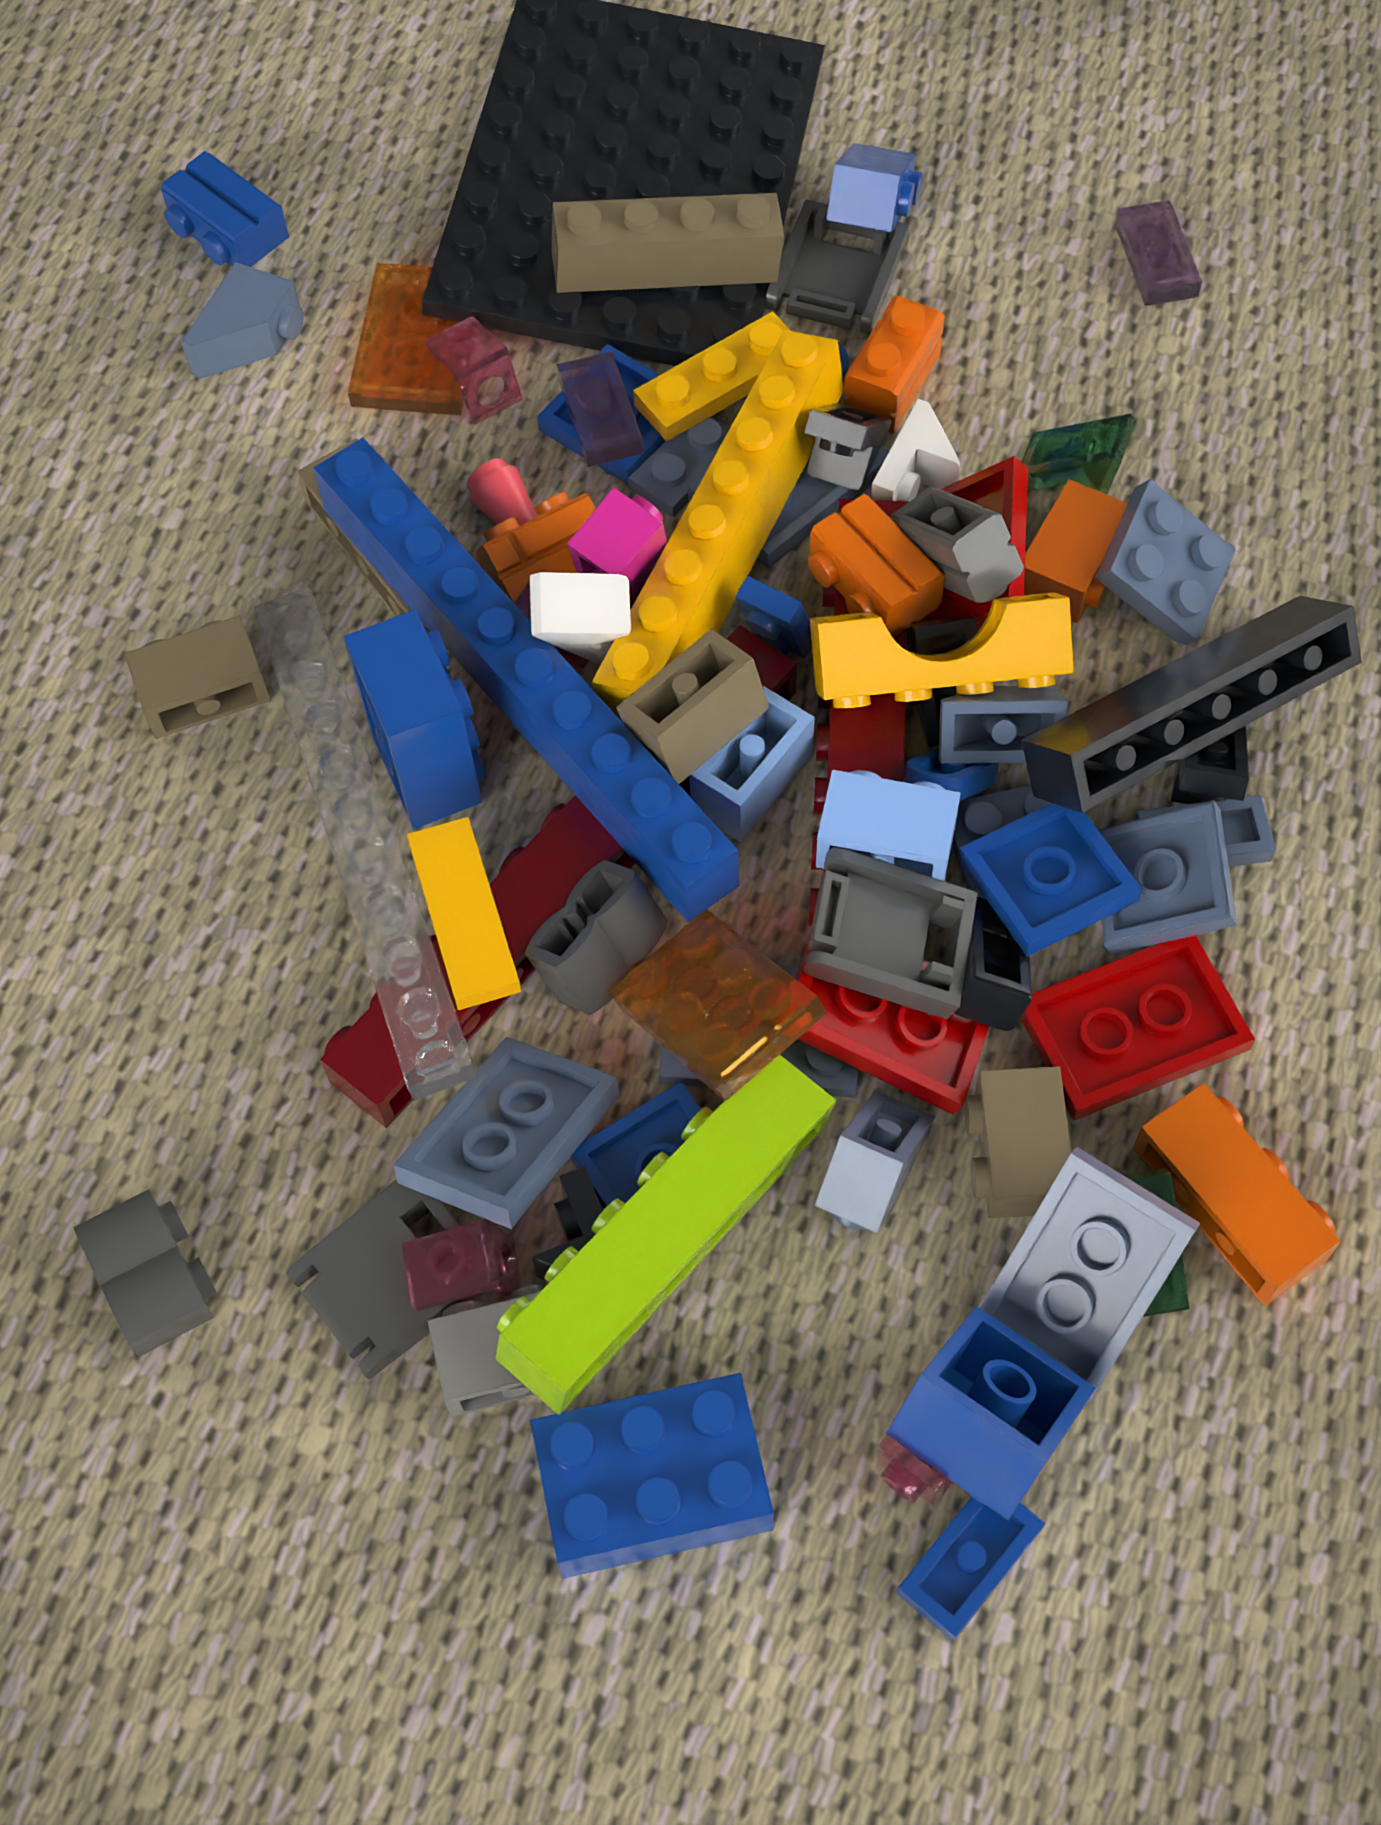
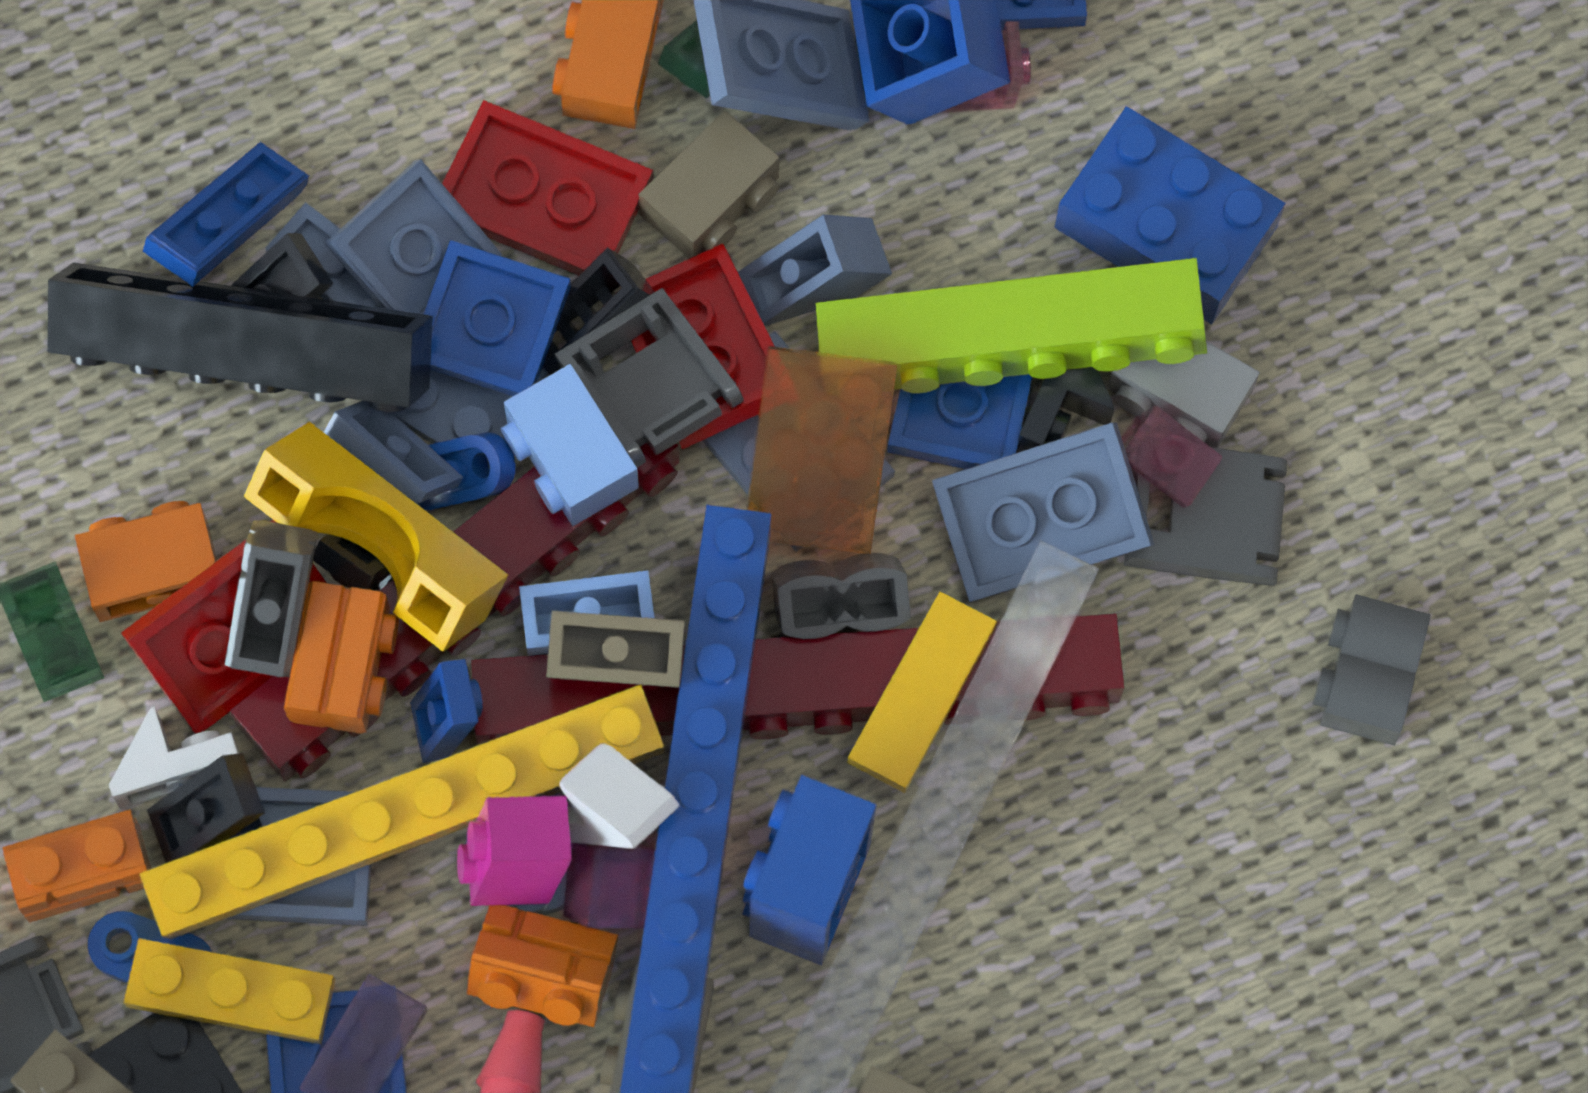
camera: 140 degrees left, 10 degrees up
(677, 463) = (342, 951): sand blue plate -> none
(1165, 563) = (102, 477): sand blue plate -> none
(1312, 782) = (225, 214): none -> blue tile

